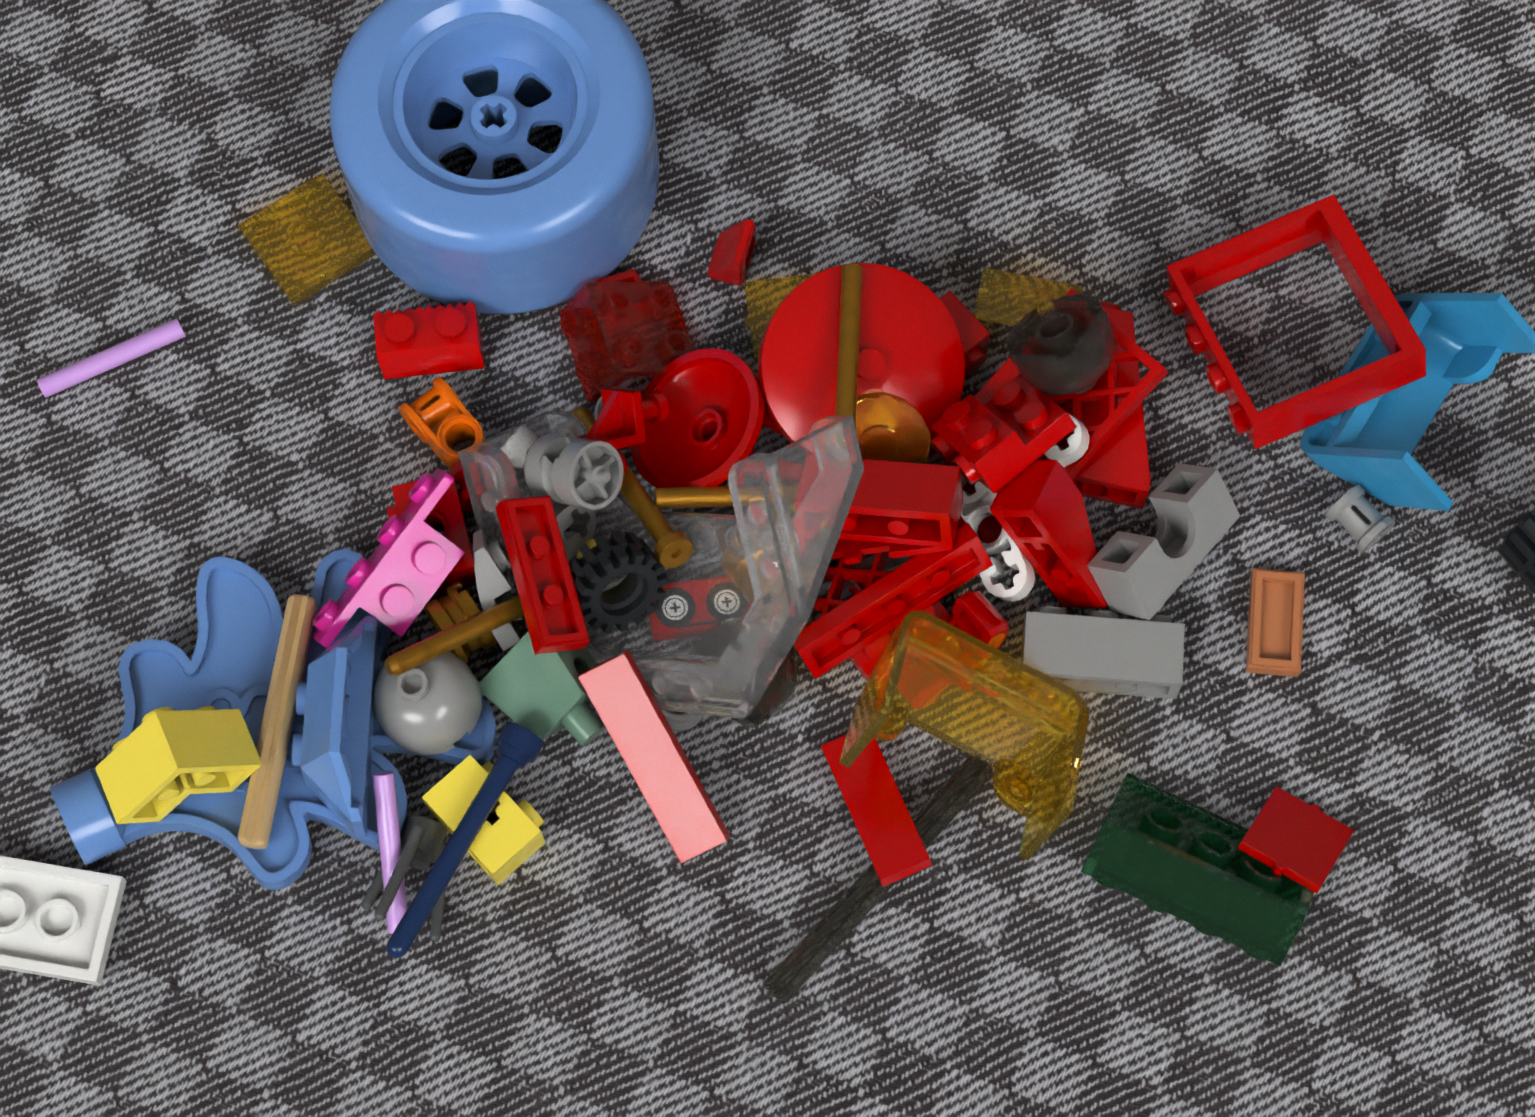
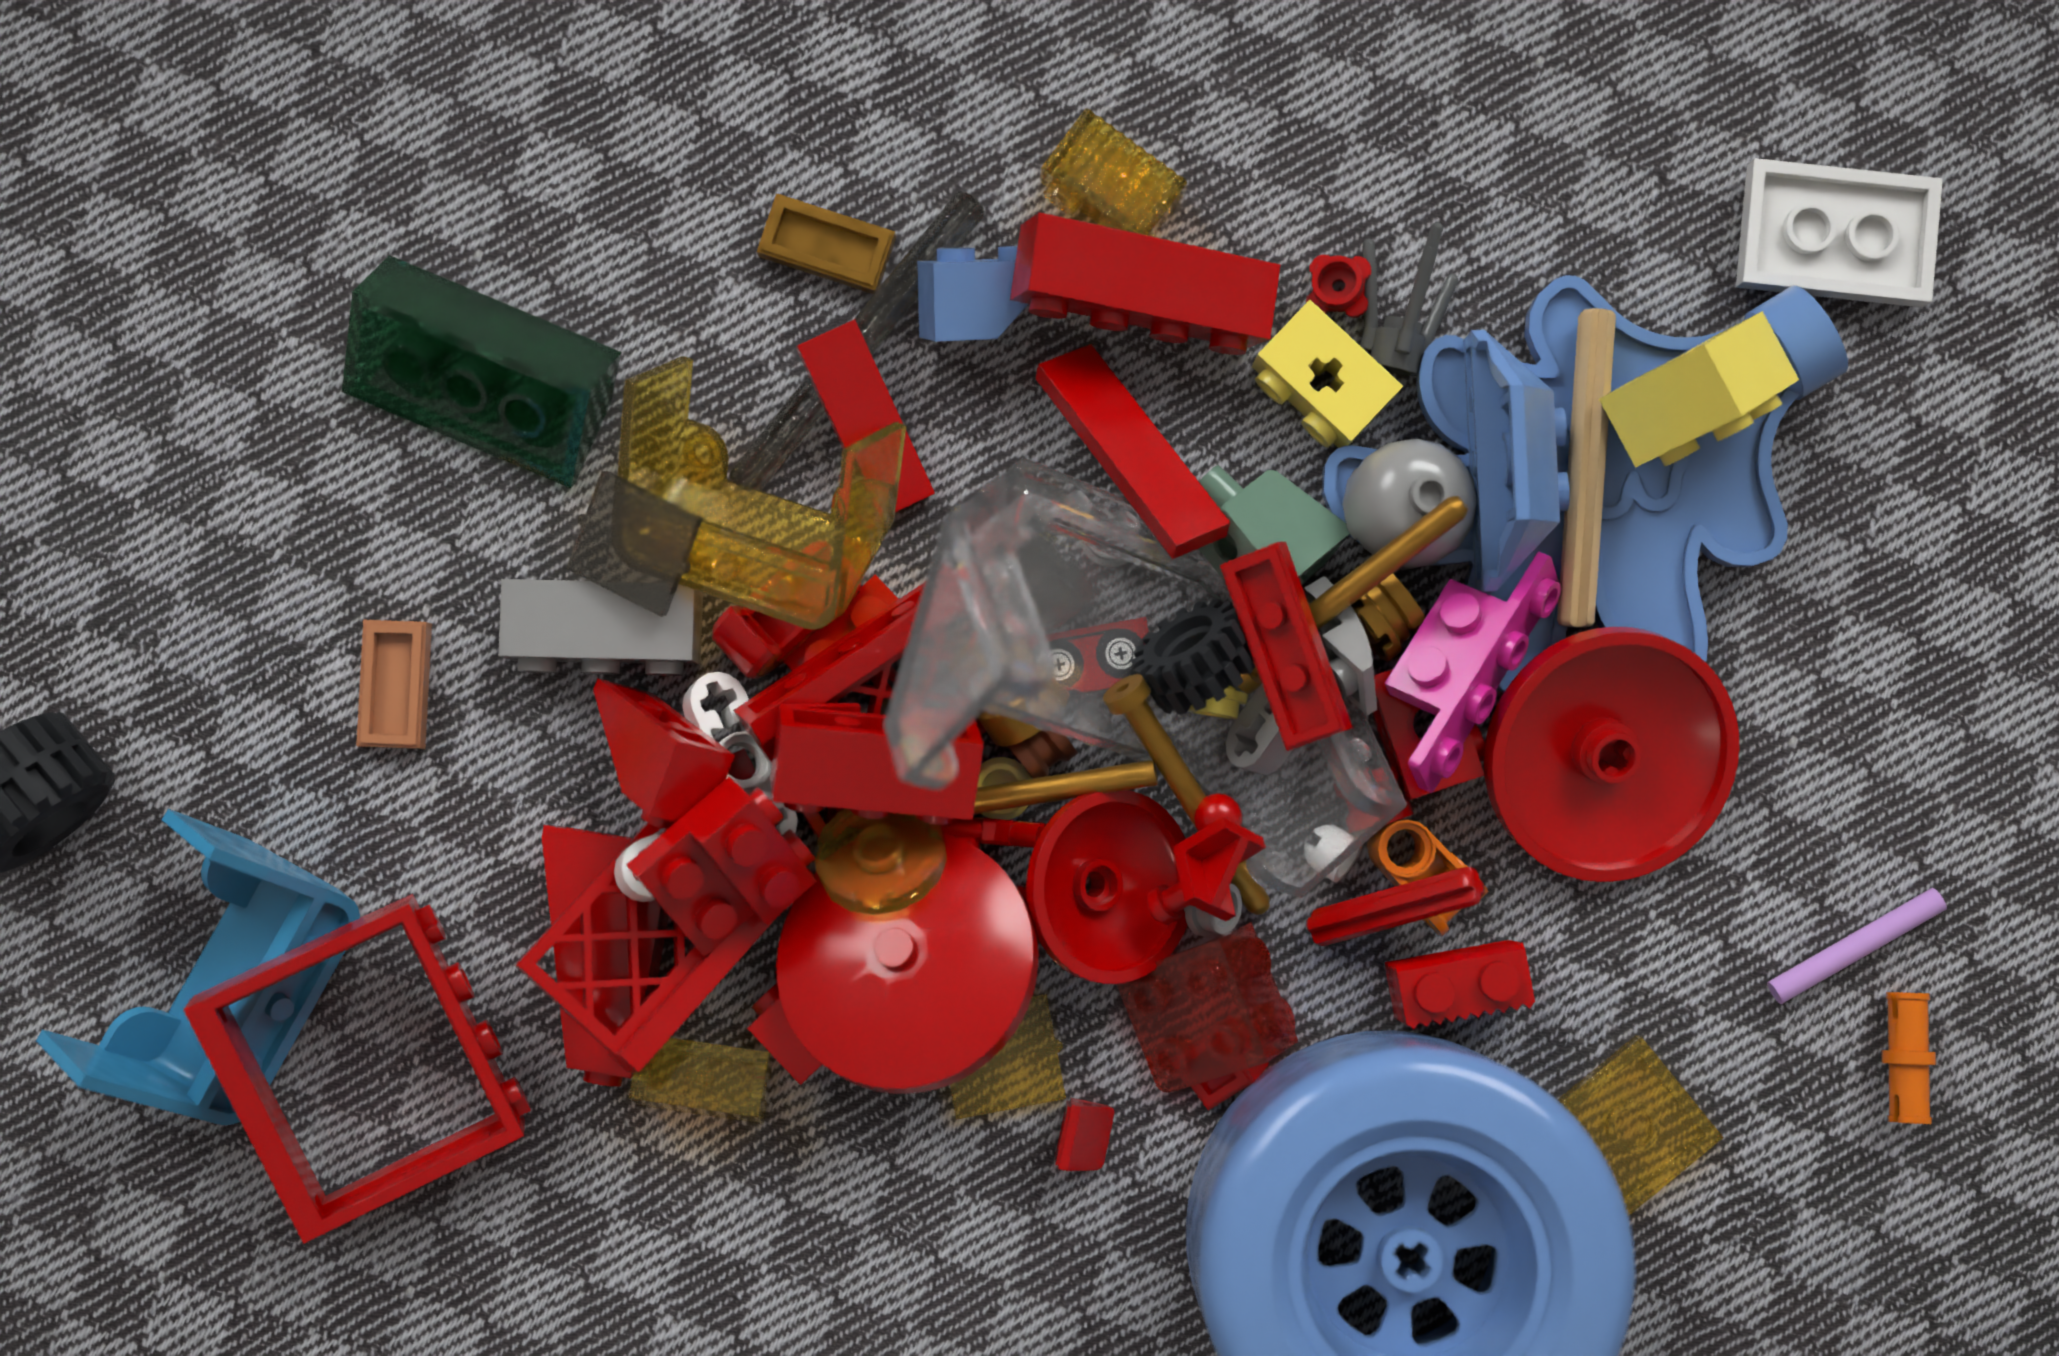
camera: 175 degrees right, 15 degrees up
(85, 272) = (1908, 1057): none -> orange pin
(287, 500) = (1611, 754): none -> red dish
(389, 841) = (1434, 331): lavender bar -> none
(473, 391) = (1396, 906): none -> red axle
(474, 913) = (1352, 272): none -> red plate
(515, 750) = (1297, 444): dark blue piece -> none
(574, 470) = (1259, 789): light grey wheel -> none
(632, 893) = (1144, 283): none -> red brick
(653, 995) = (1110, 178): none -> clear yellow brick
(772, 902) = (966, 295): none -> medium blue slope
(849, 341) = (921, 938): pearl gold bar -> none
(903, 965) = (826, 244): none -> pearl gold tile
(1064, 347) = (646, 982): clear smoke cylinder -> none
(1070, 697) = (634, 543): none -> clear smoke piece
(1144, 571) = (492, 796): light grey arch -> none
(1296, 839) = (369, 408): red piece -> none
(1360, 518) = (265, 809): light grey bush -> none

